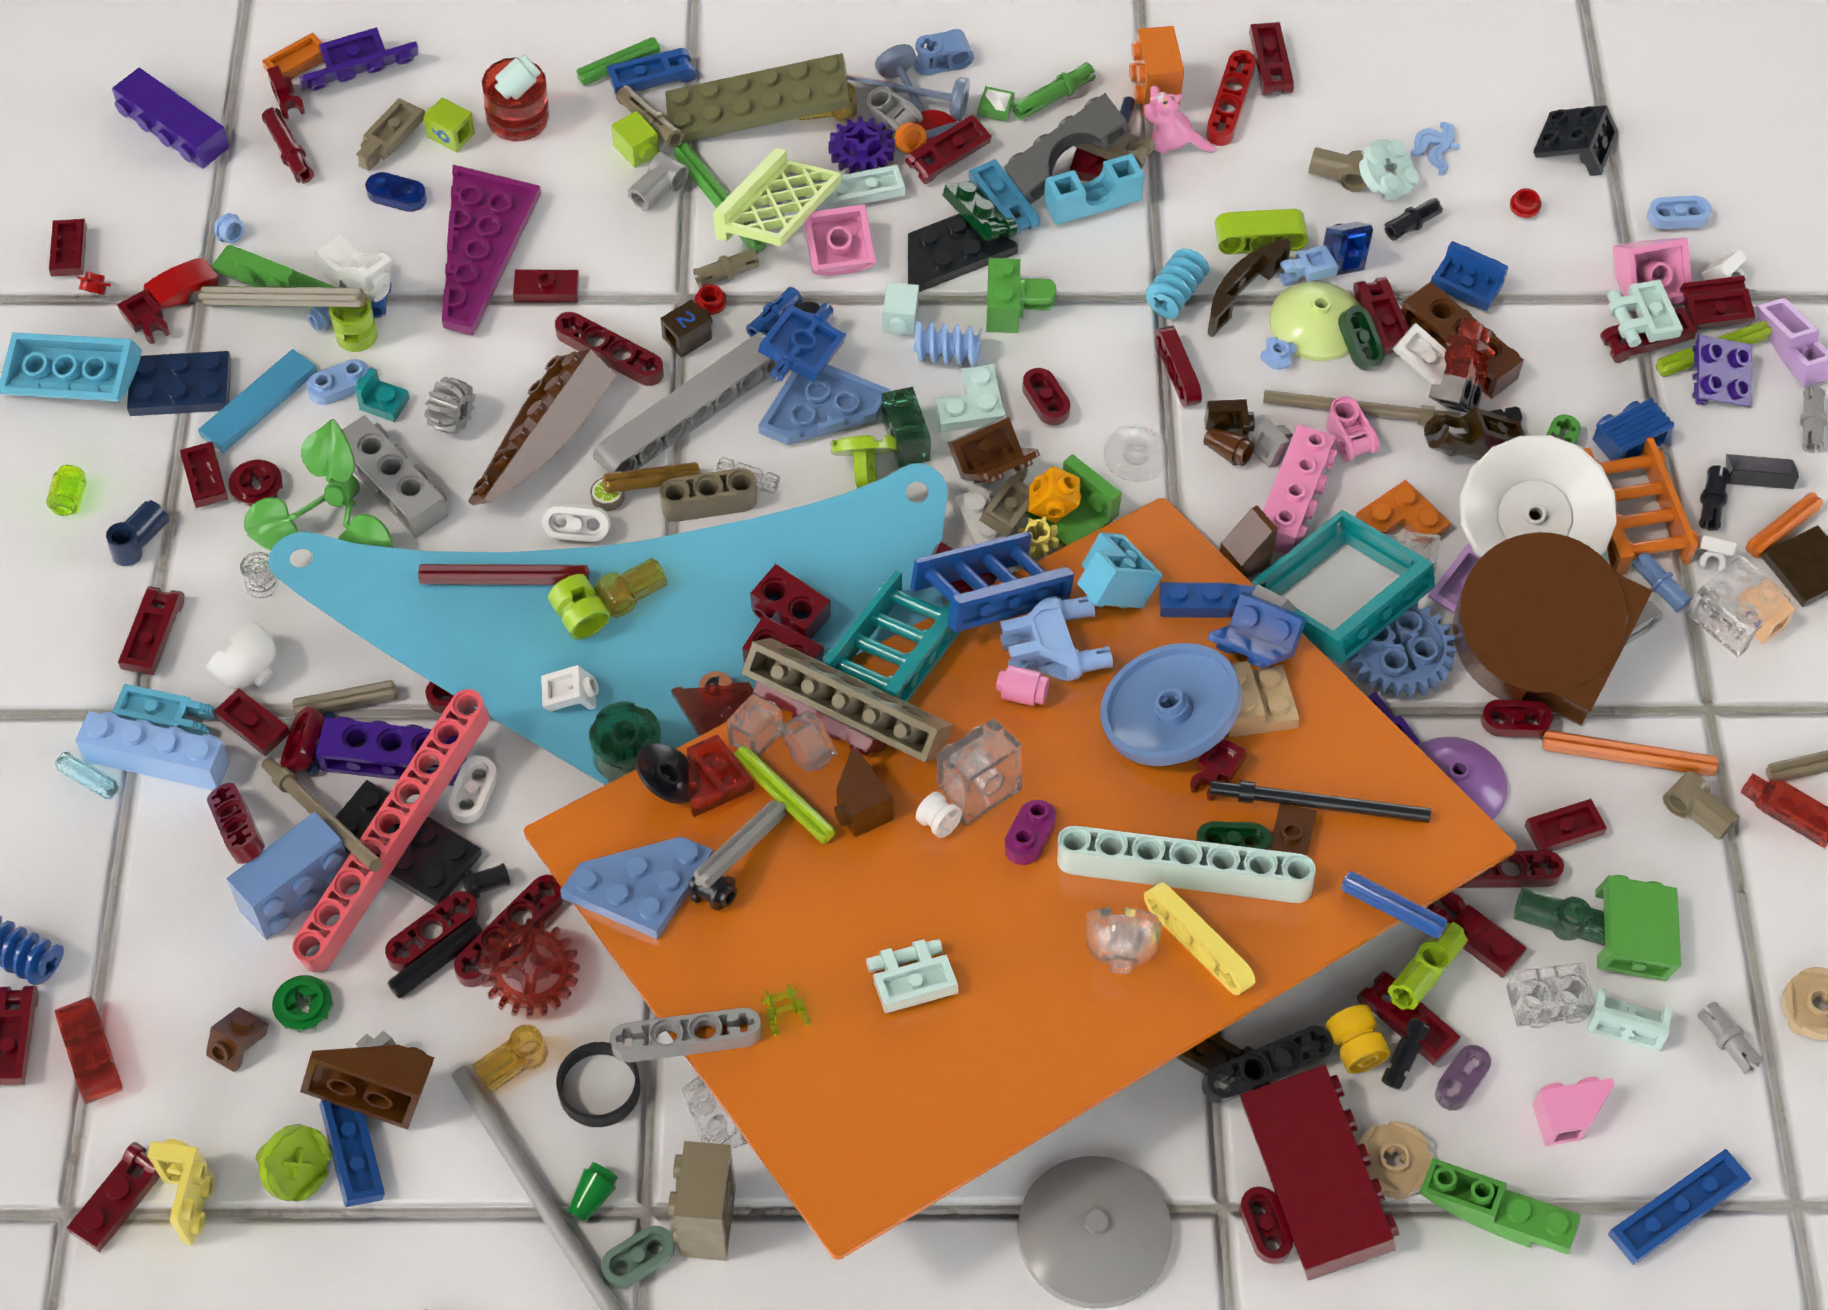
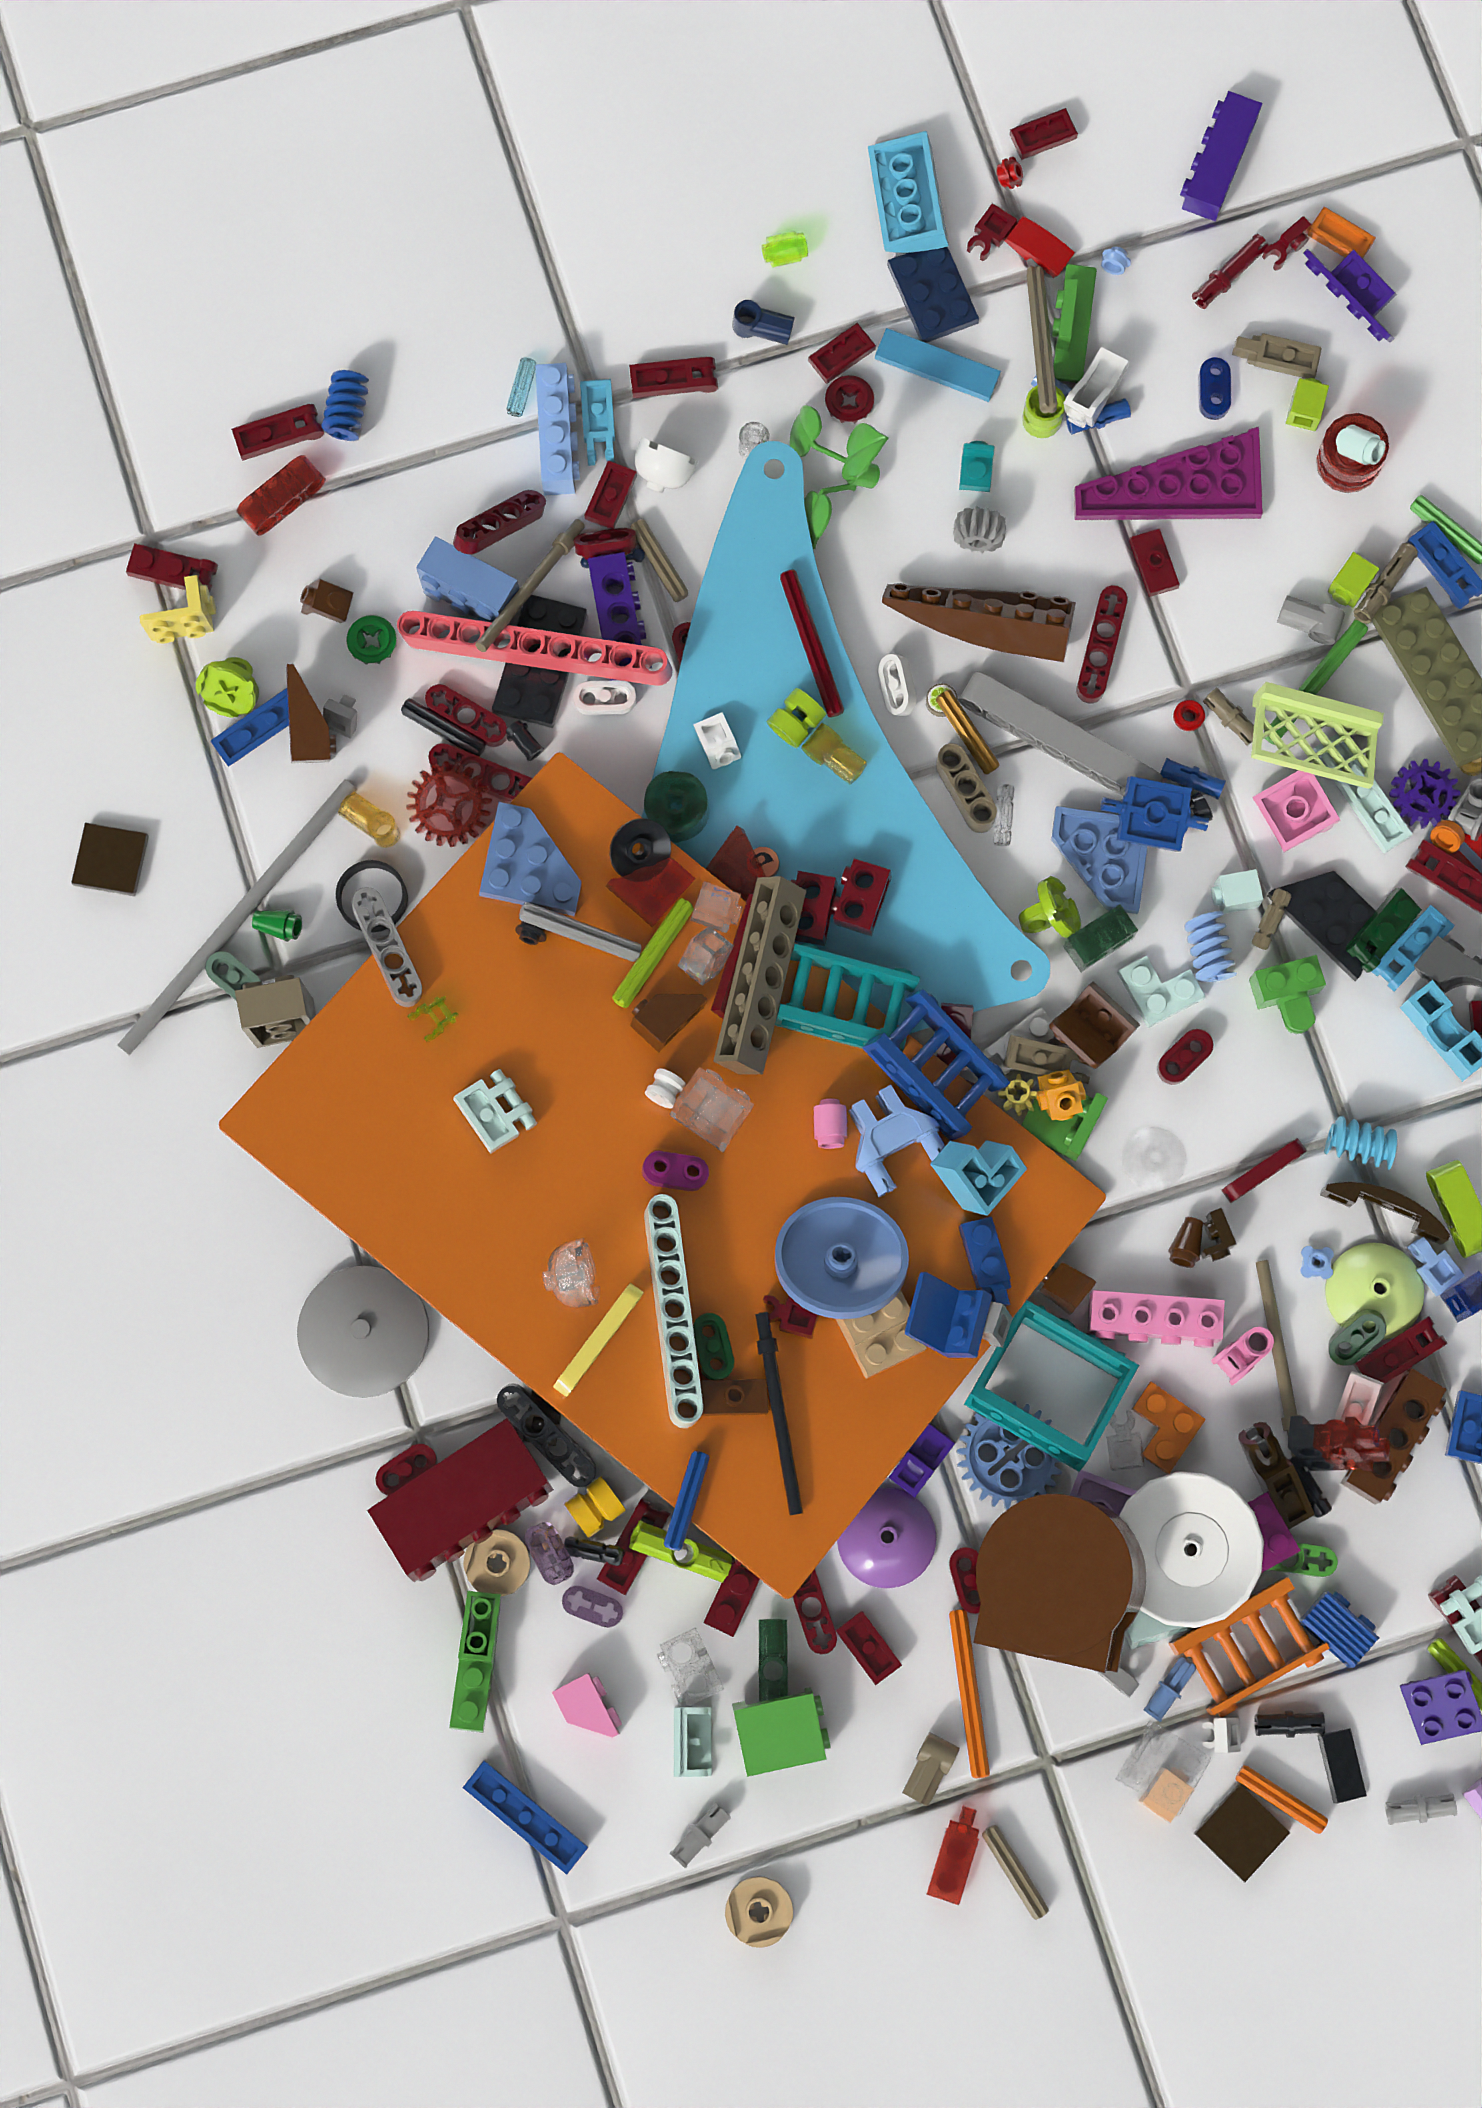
camera: 75 degrees right, 20 degrees up
(339, 381) = (980, 424): light blue plate -> none
(378, 459) = (911, 466): light grey brick -> none
(686, 328) = (1146, 705): dark brown brick -> none
(937, 291) = (1271, 919): none -> dark tan axle
(1271, 441) = (1203, 1281): light grey tile -> none
(1397, 1109) = (549, 1553): none -> clear purple beam

